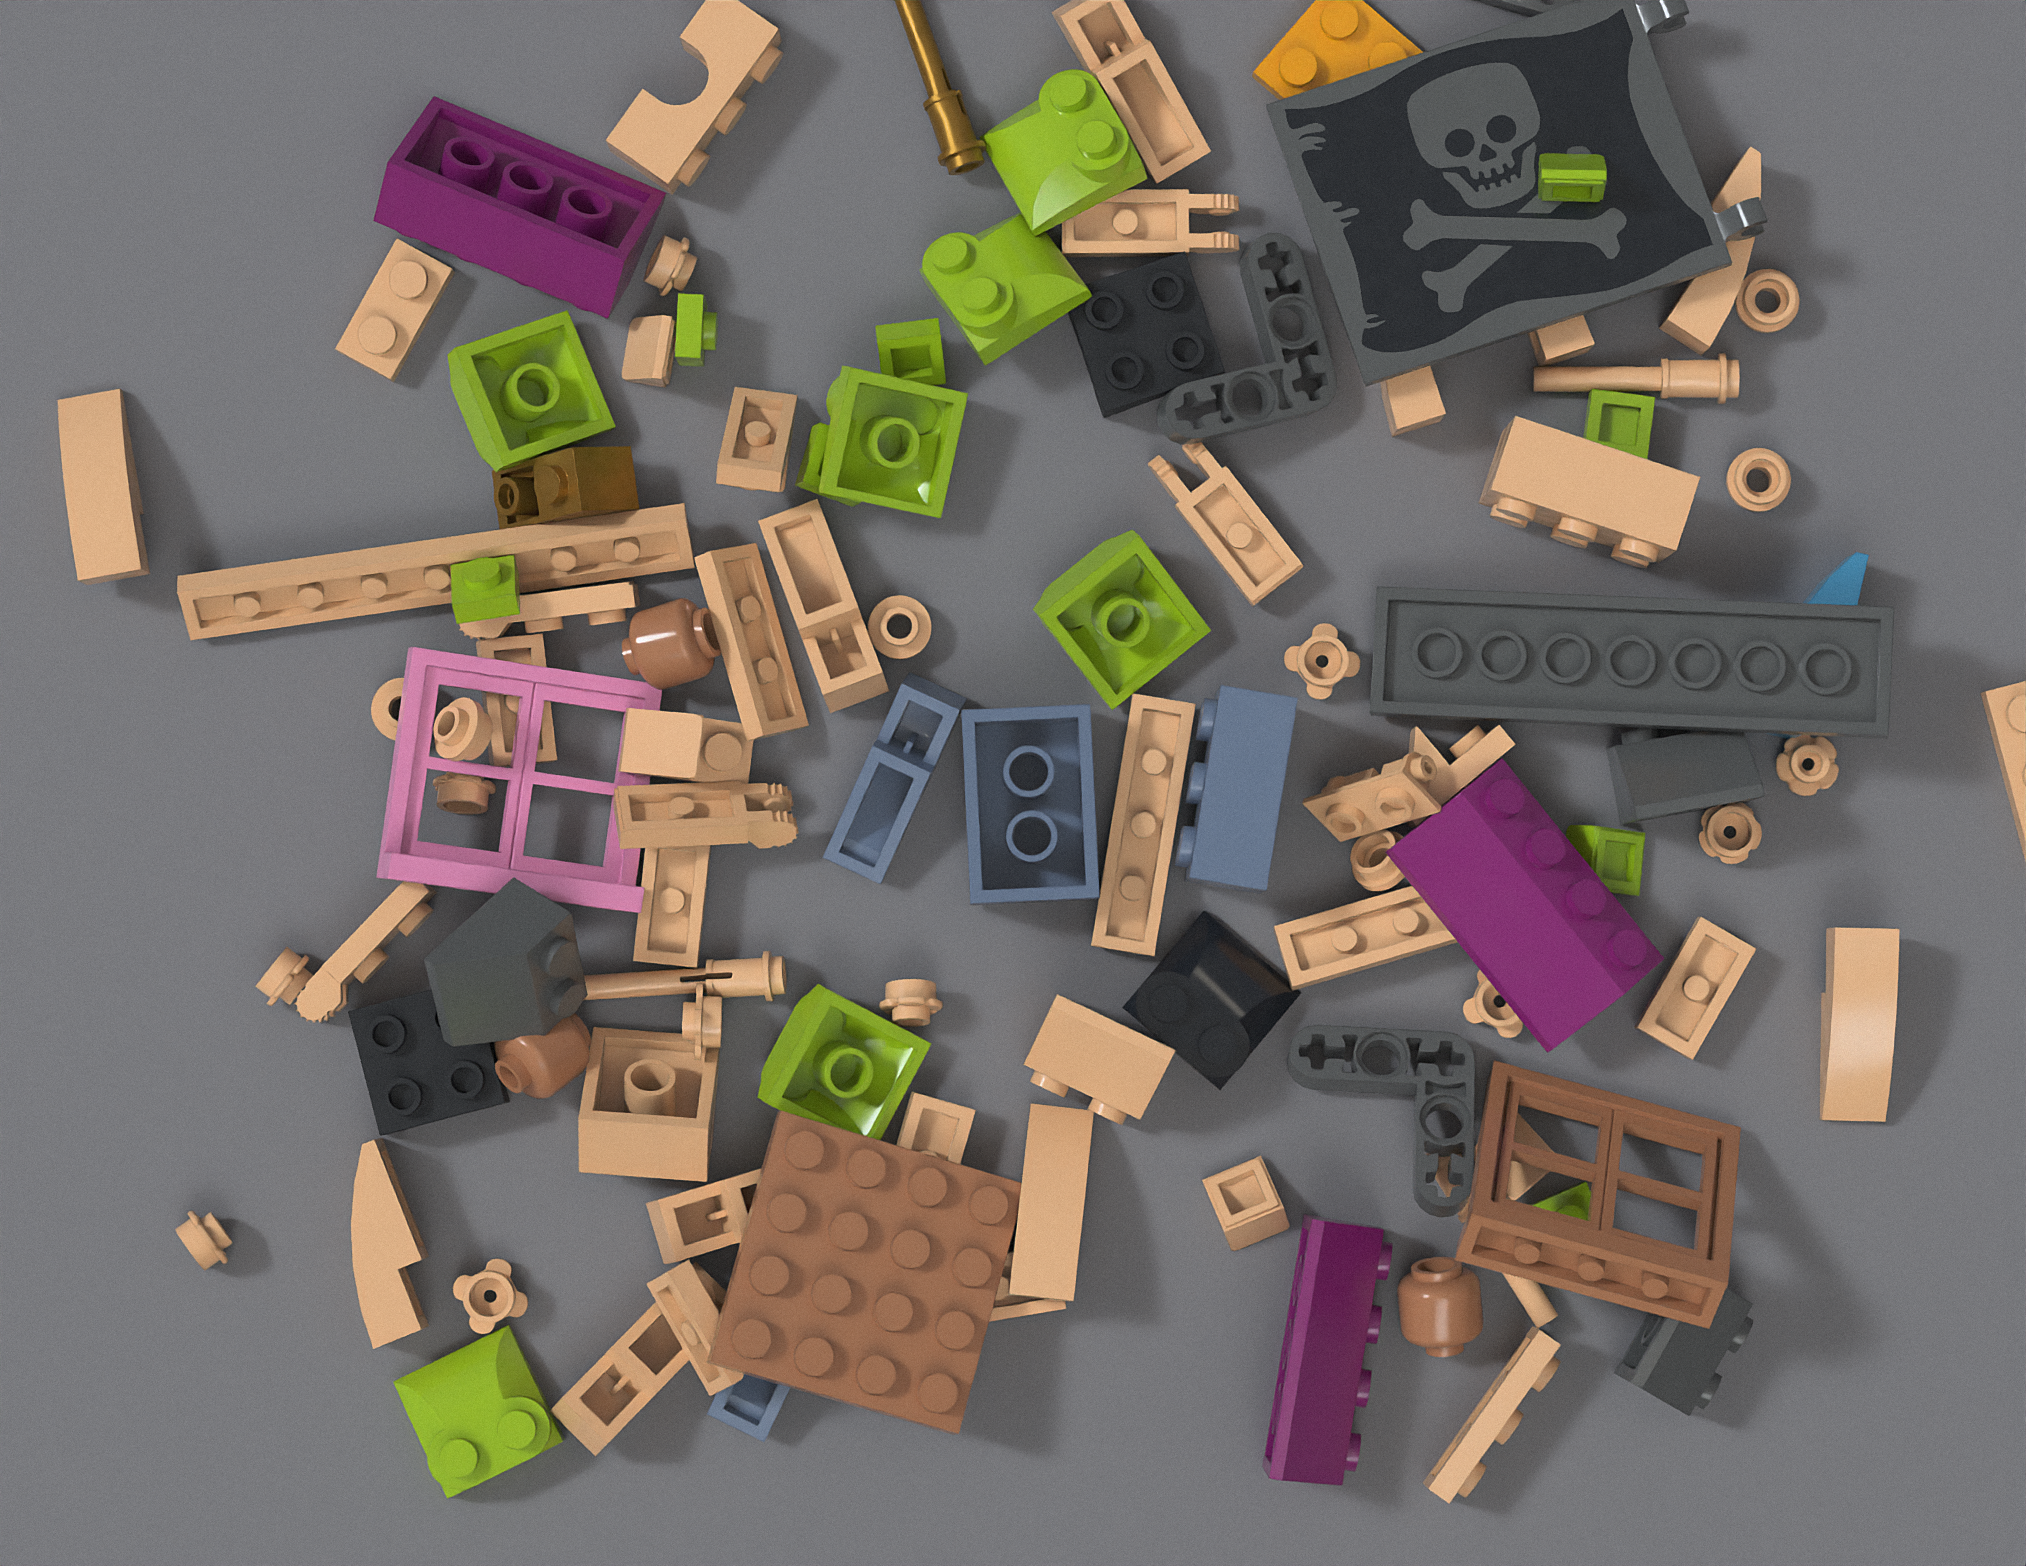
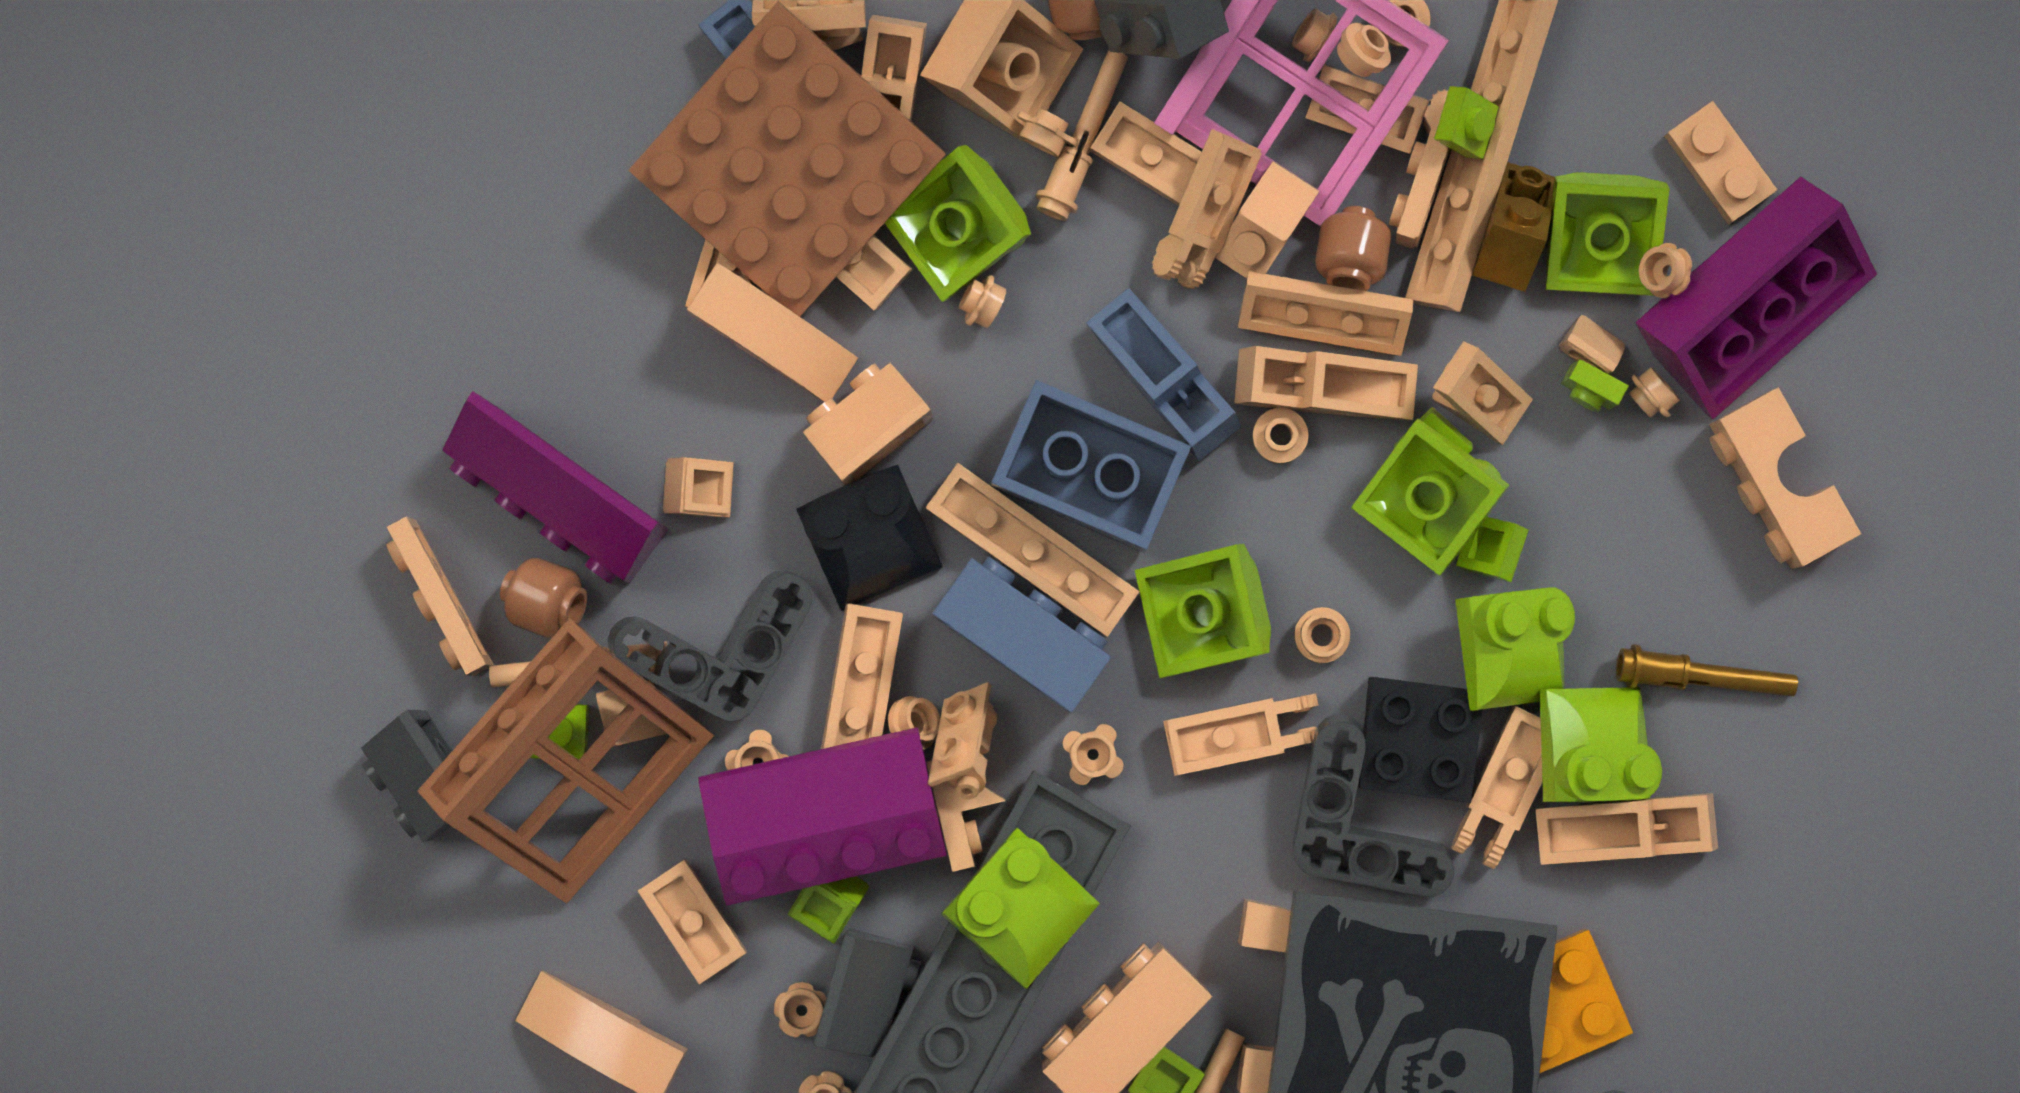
camera: 120 degrees right, 0 degrees up
(543, 324) = (1654, 270): none -> light nougat plate
(1084, 465) = (1339, 629): none -> light nougat plate
(1518, 656) = (1020, 908): none -> lime slope

